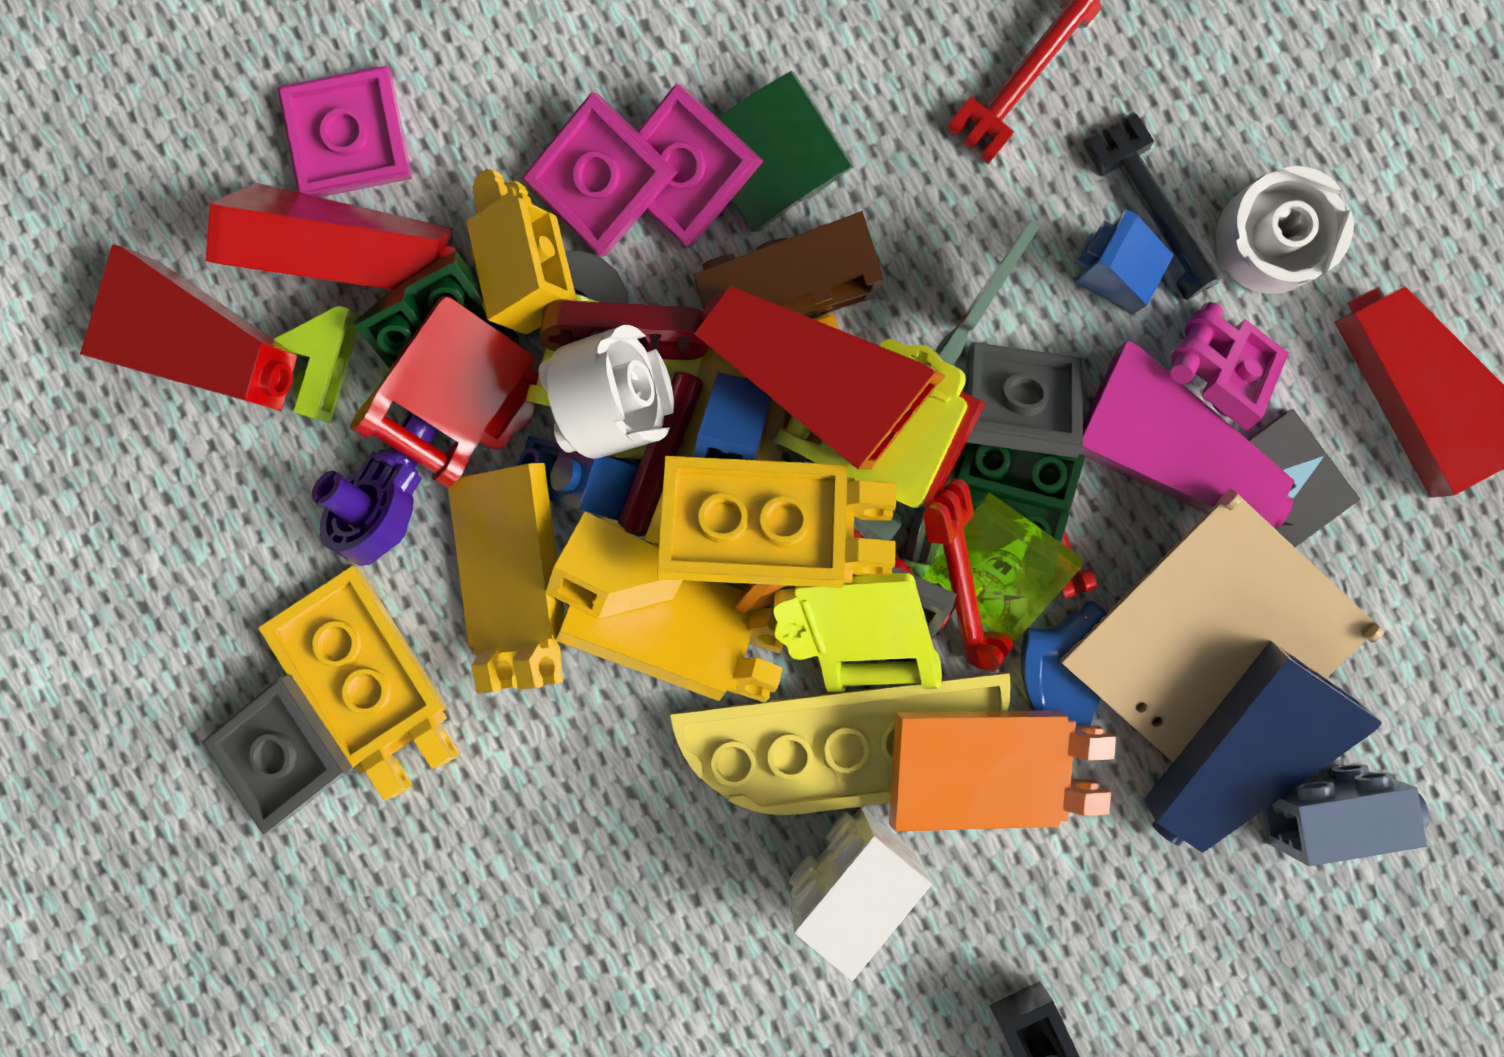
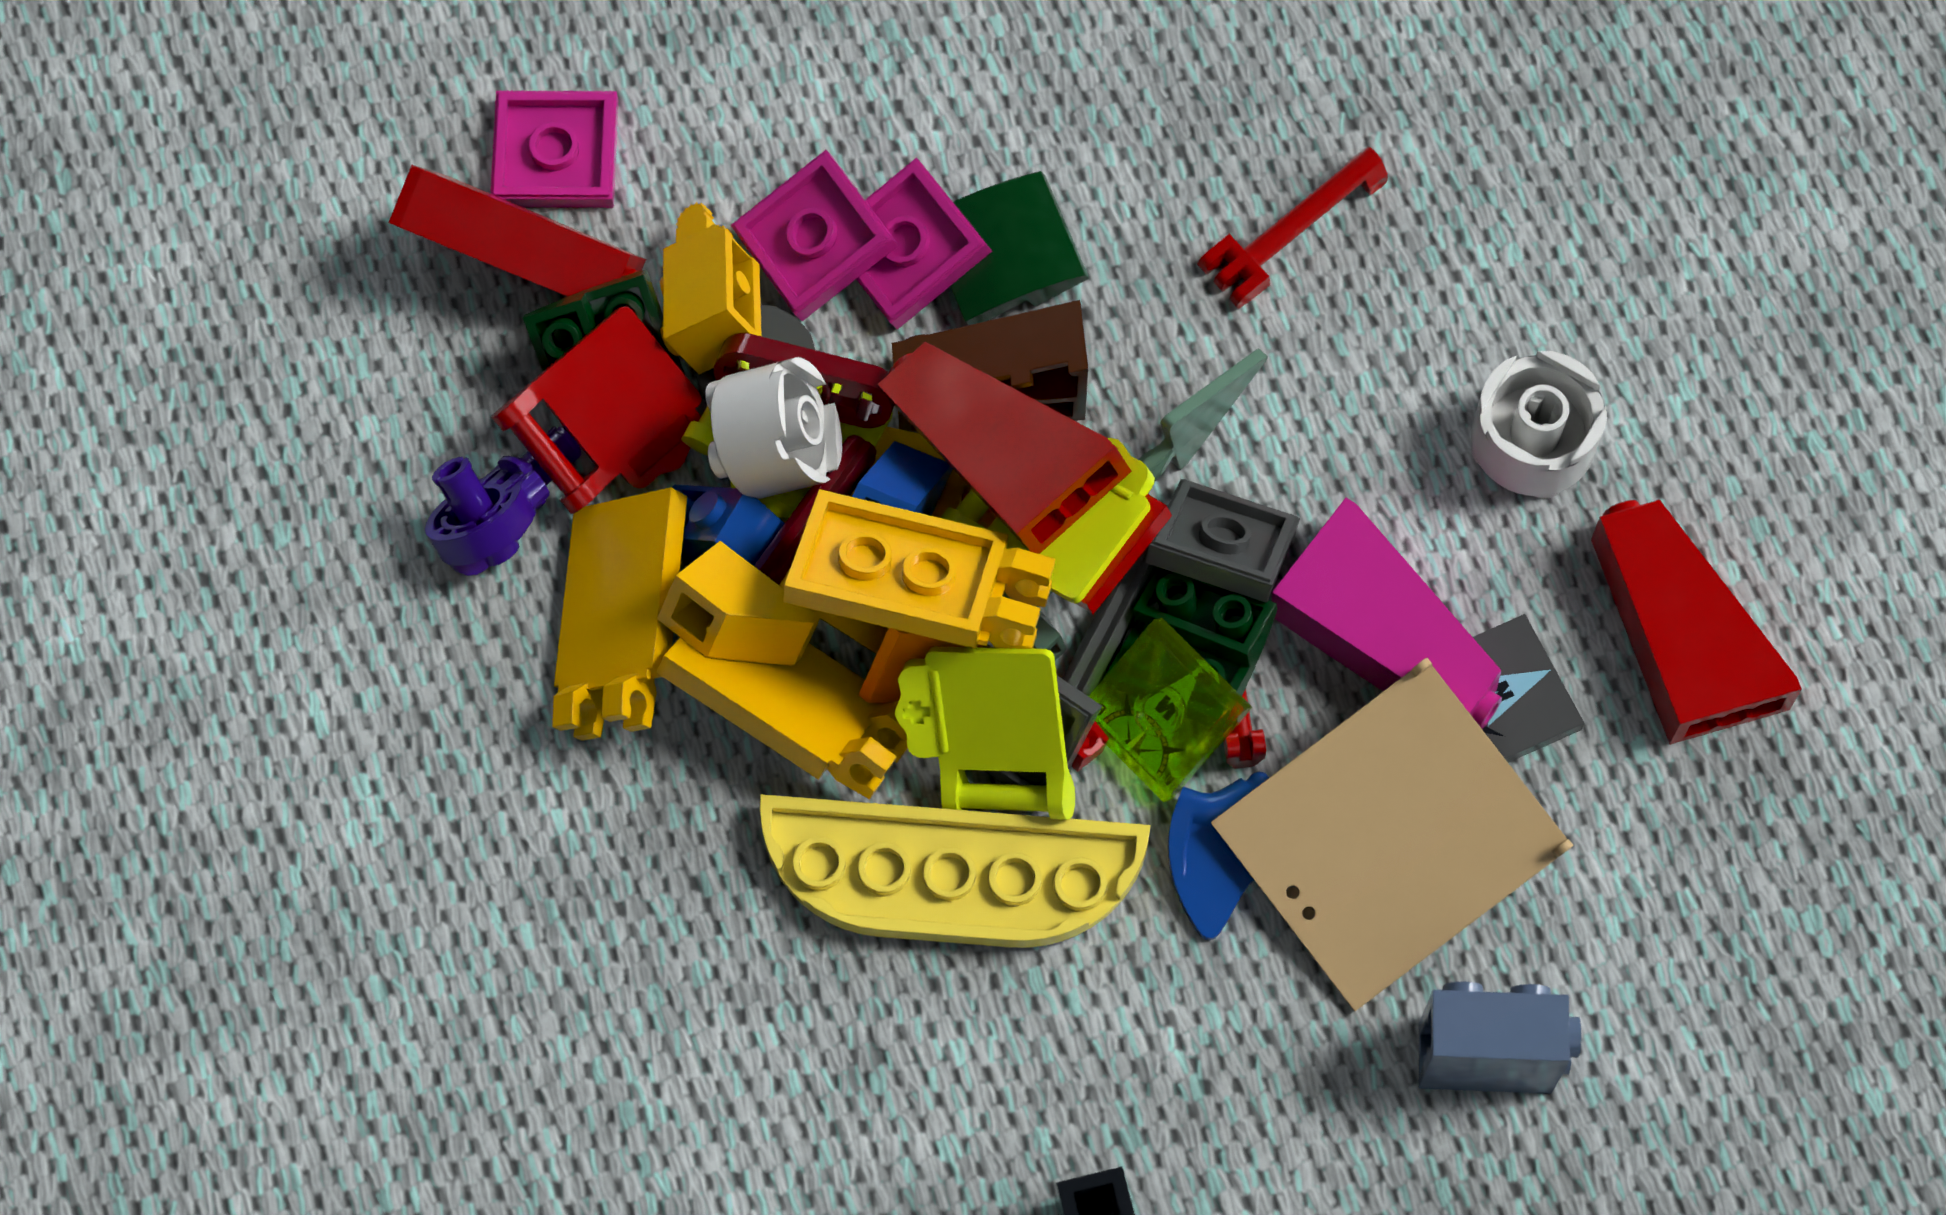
camera: 15 degrees right, 20 degrees down
(175, 331) = (335, 303): red slope -> none
(277, 754) = (313, 752): dark grey tile -> none
(328, 346) = (479, 348): lime slope -> none
(361, 679) = (425, 696): yellow tile -> none
(855, 891) = (924, 990): white brick -> none
(945, 525) = (1108, 623): red hinge -> none
(993, 770) = (1107, 919): orange tile -> none
(1123, 262) = (1358, 420): blue slope -> none
(1126, 156) = (1389, 326): black hinge -> none
(1238, 377) = (1458, 551): dark pink plate -> none
(1255, 748) = (1428, 933): dark blue slope -> none

